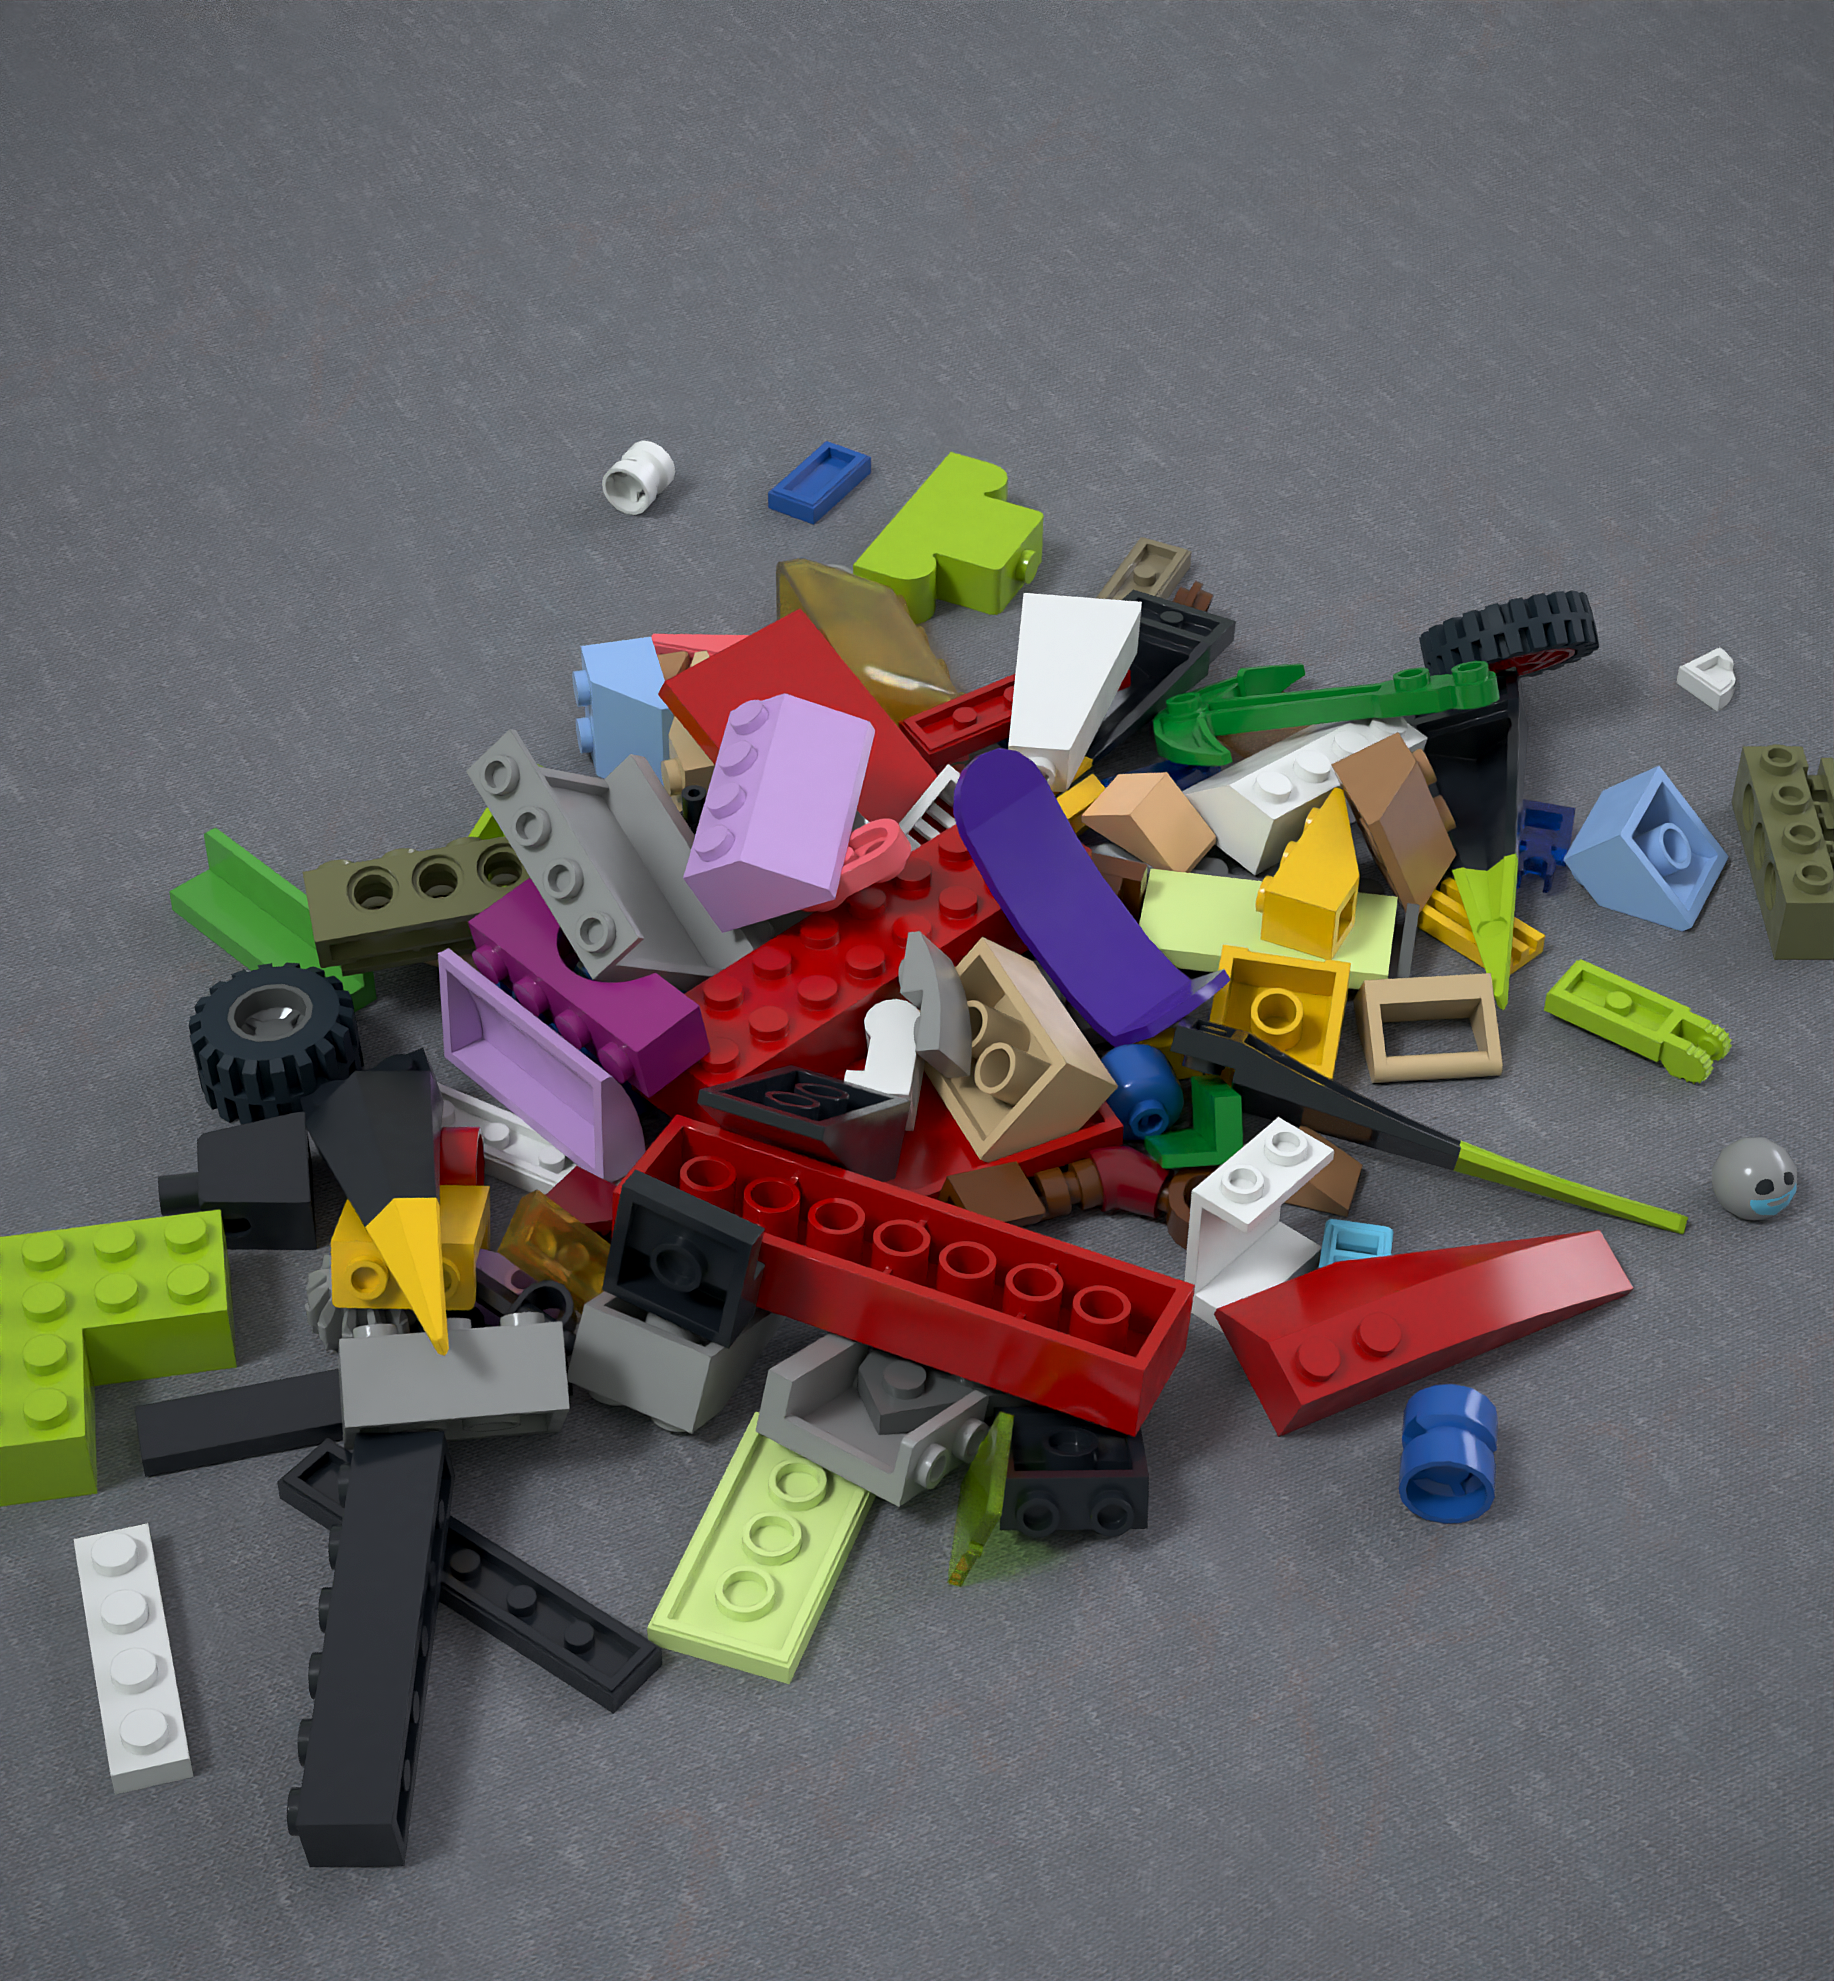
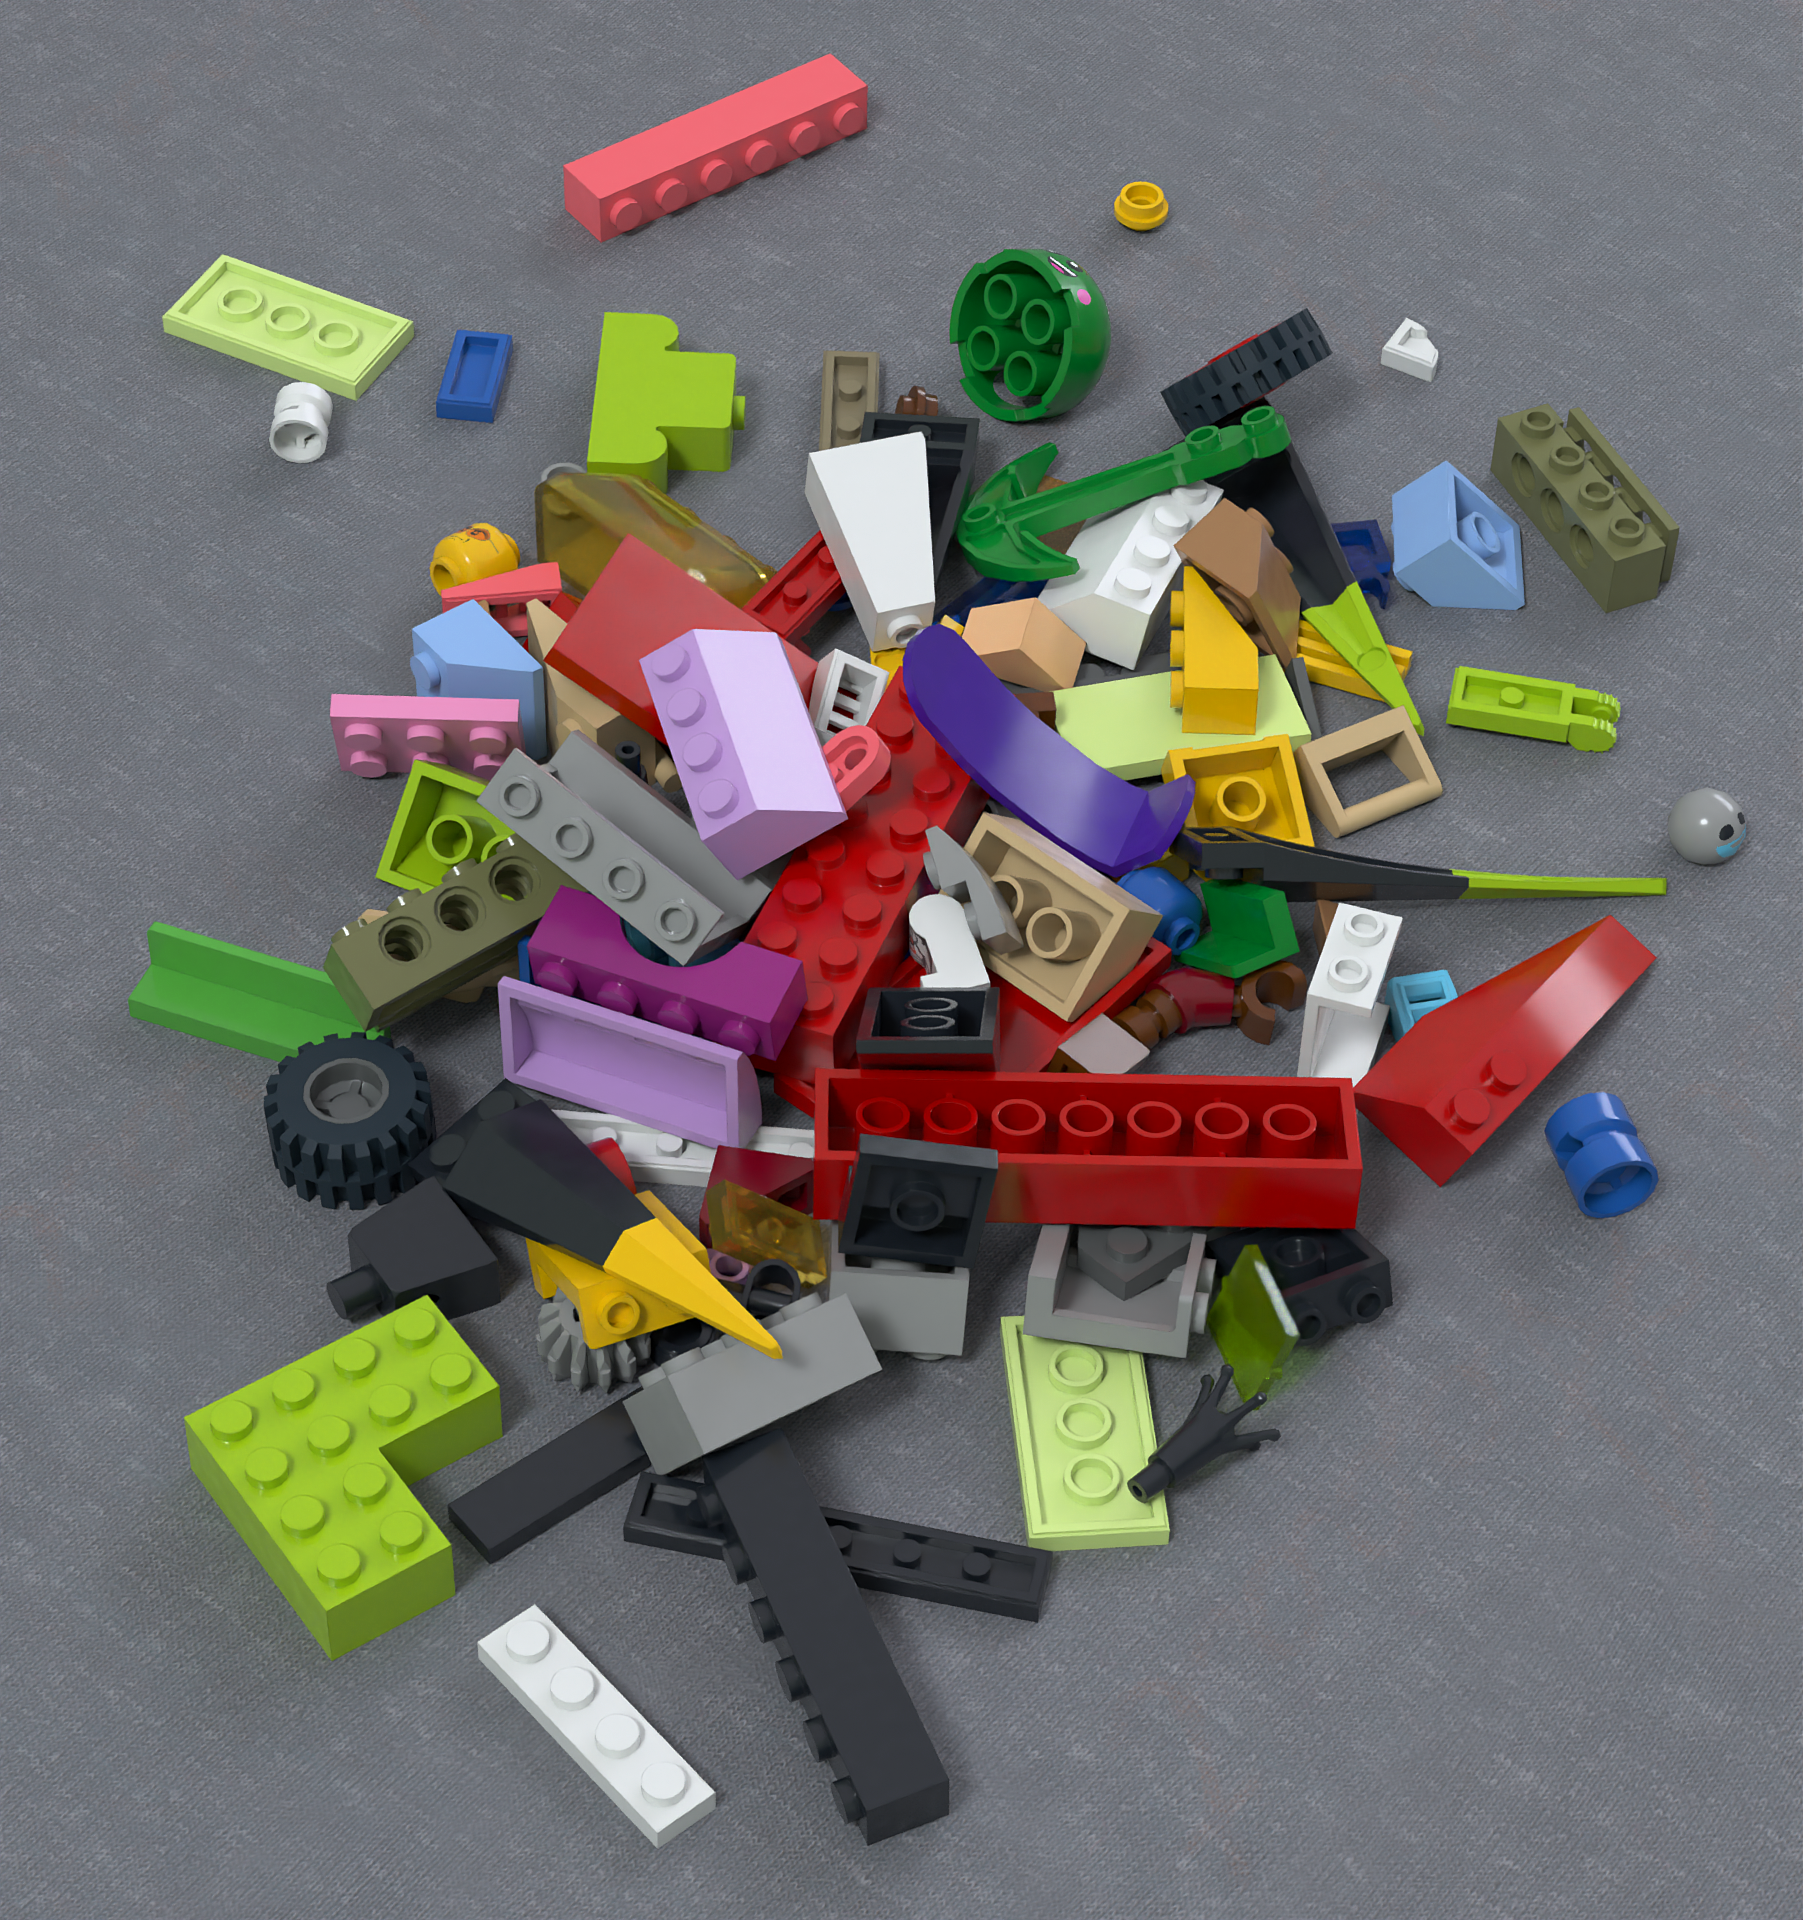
camera: 25 degrees left, 5 degrees up
(552, 733) = (392, 731): none -> bright pink plate
(688, 406) = (288, 327): none -> yellowish green tile
(706, 613) = (472, 556): none -> yellow head
(861, 1592) = (1199, 1439): none -> black piece
(1149, 353) = (715, 147): none -> coral brick
(1329, 561) = (1039, 324): none -> green cylinder
(1516, 493) = (1141, 206): none -> yellow plate

